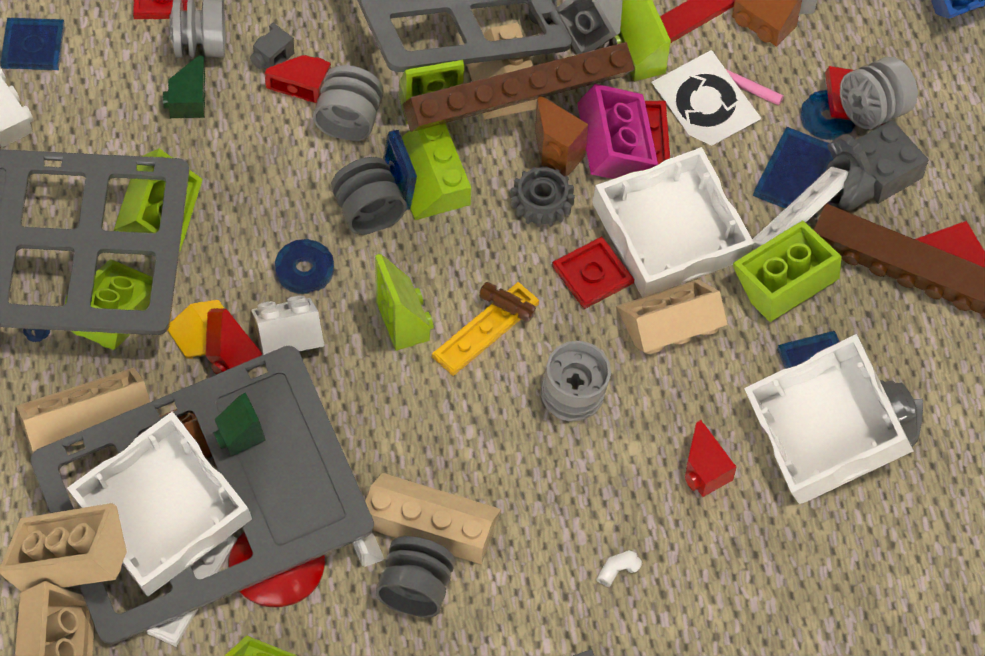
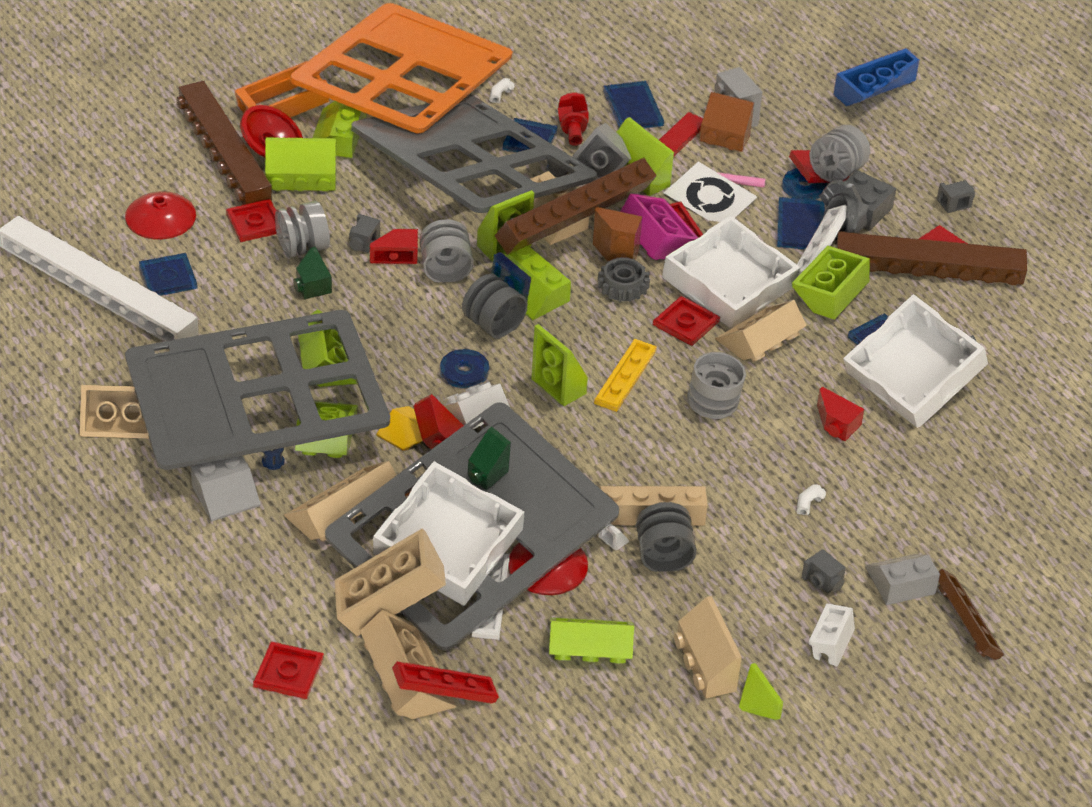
camera: 20 degrees left, 15 degrees down
(507, 301) = (635, 350): reddish brown axle -> none

